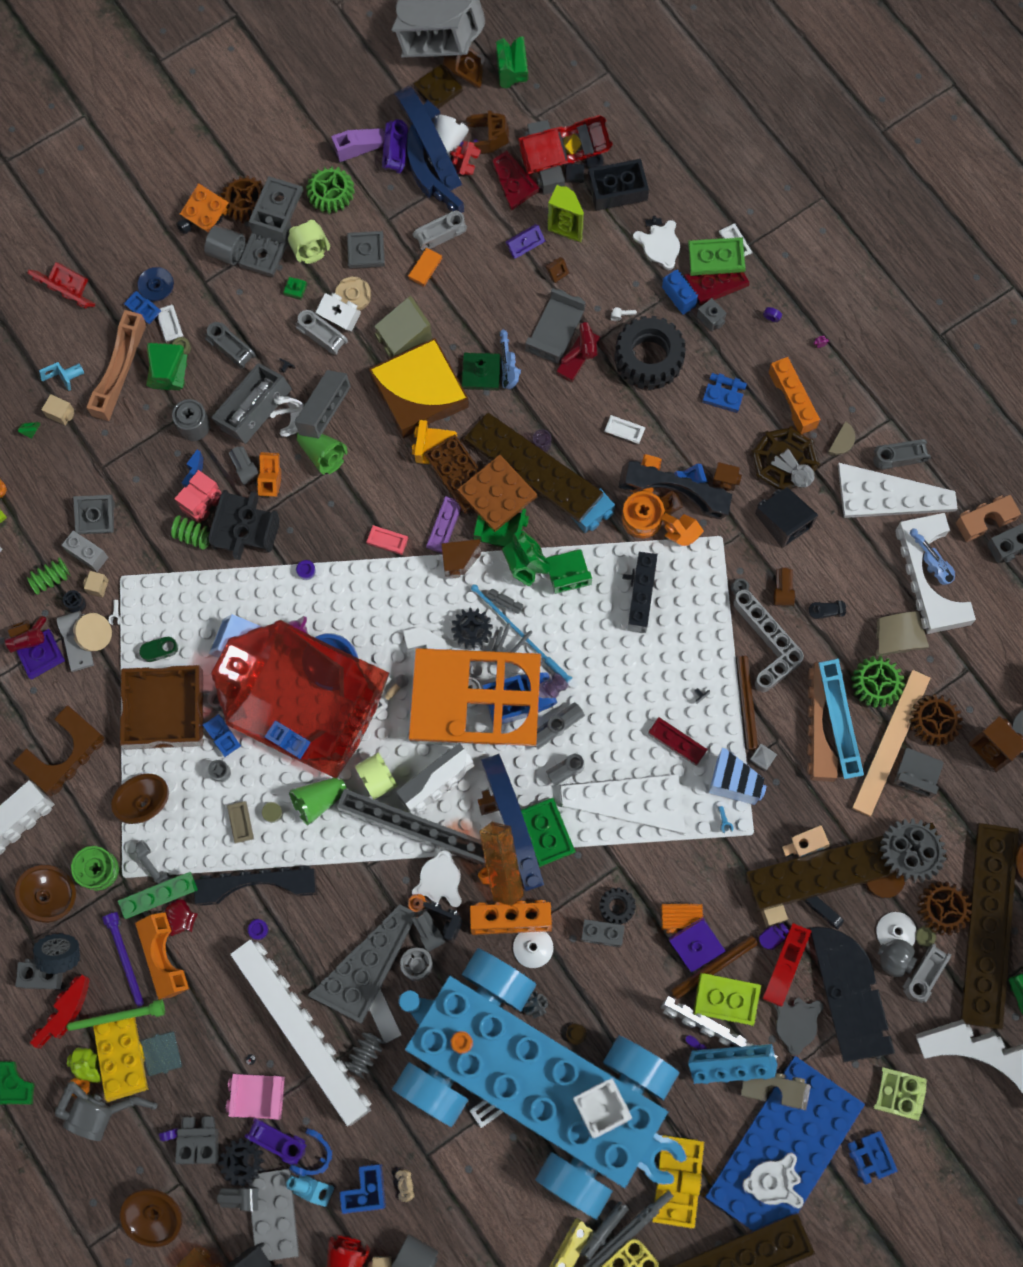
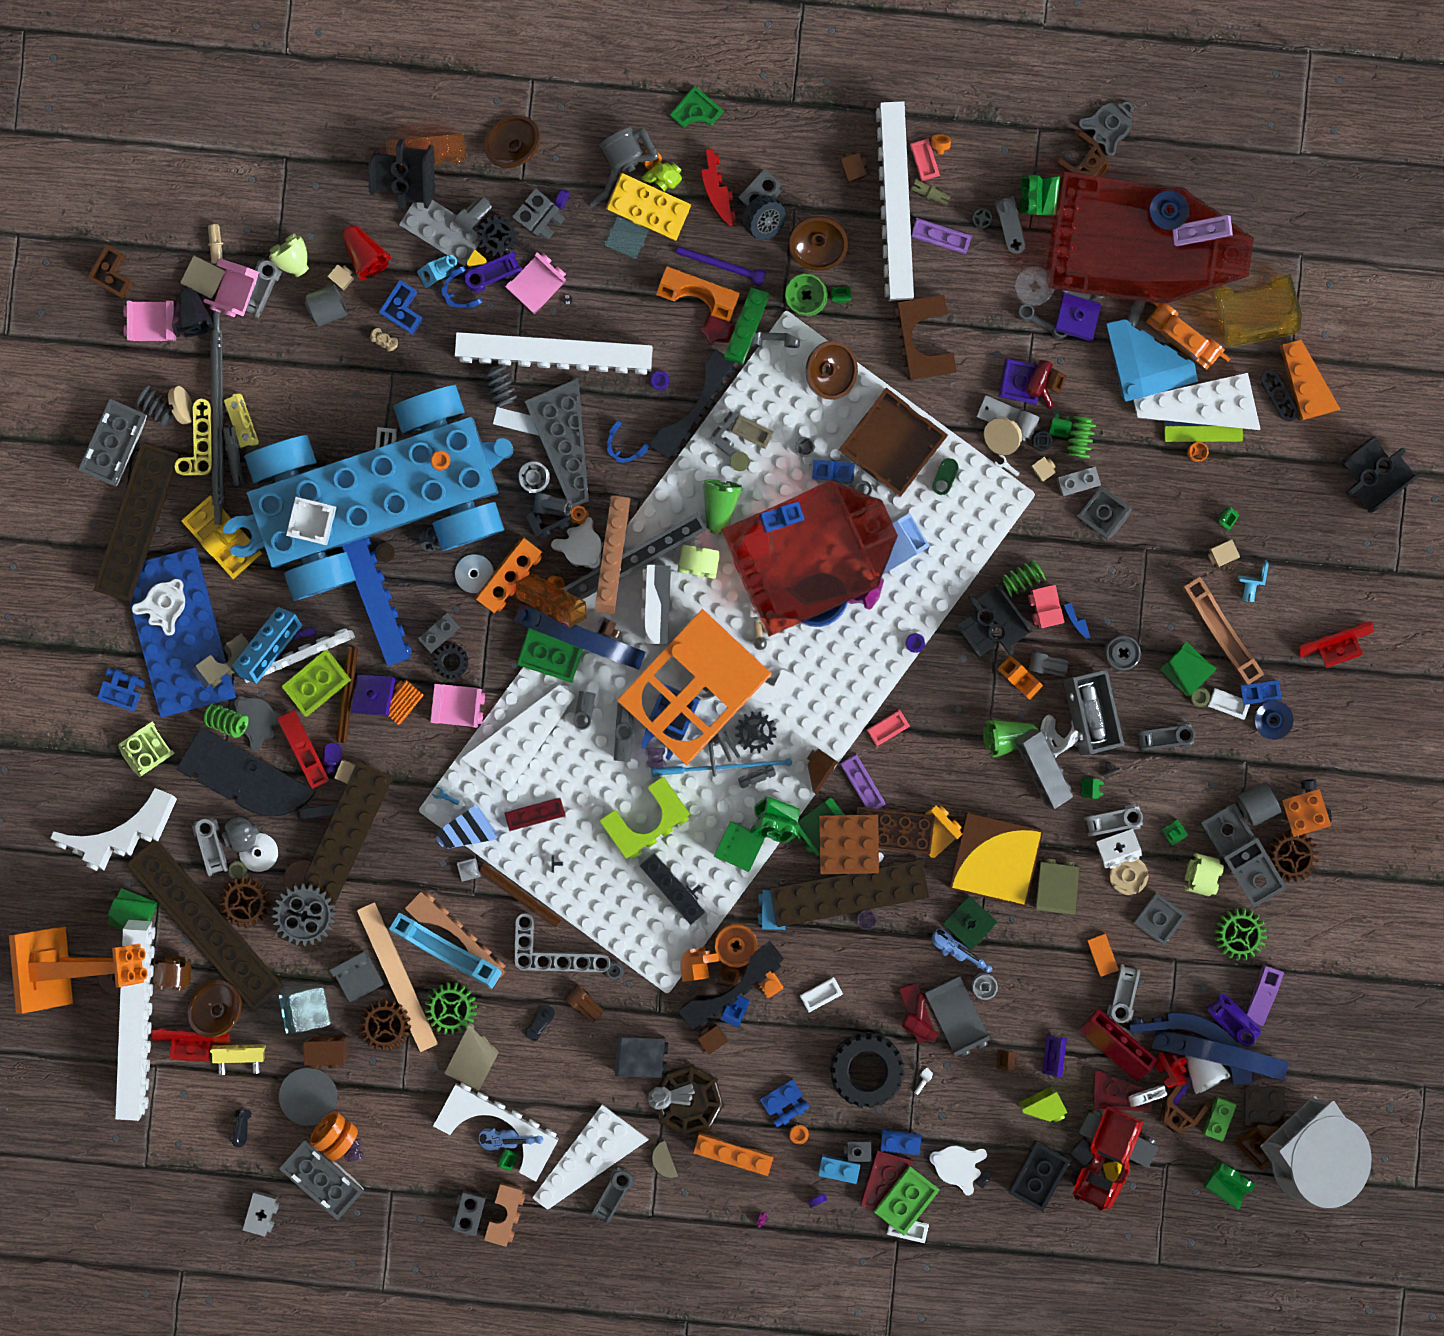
camera: 125 degrees right, 15 degrees up
(52, 596) = (1060, 427): none -> green tile
(75, 842) = (841, 294): none -> green slope
(156, 1008) = (661, 259): bright green piece -> none
(267, 840) = (724, 444): none -> dark grey bracket
(275, 1162) = (476, 259): none -> yellow slope
(311, 365) = (1090, 788): none -> green tile
(329, 896) = (613, 430): none -> blue piece
(438, 835) = (612, 555): none -> nougat arch
(471, 103) = (1219, 1118): none -> bright green brick
(480, 205) = (1118, 1045): none -> dark red brick
(498, 157) = (1147, 1096): none -> white piece
(517, 323) = (984, 986): none -> light grey wheel
(587, 637) = (631, 842): none -> lime arch
(622, 1004) = (377, 602): none -> blue brick
(646, 872) = (457, 705): none -> bright pink panel
(737, 317) = (838, 1169): none -> dark azure brick
(737, 365) = (799, 1134): none -> orange tile
(816, 842) = (372, 850): light nougat torso -> none
(821, 1046) = (226, 720): none -> bright green piece
(947, 549) = (507, 1159): none -> green slope
(982, 790) = (304, 1010): none -> clear light blue bracket

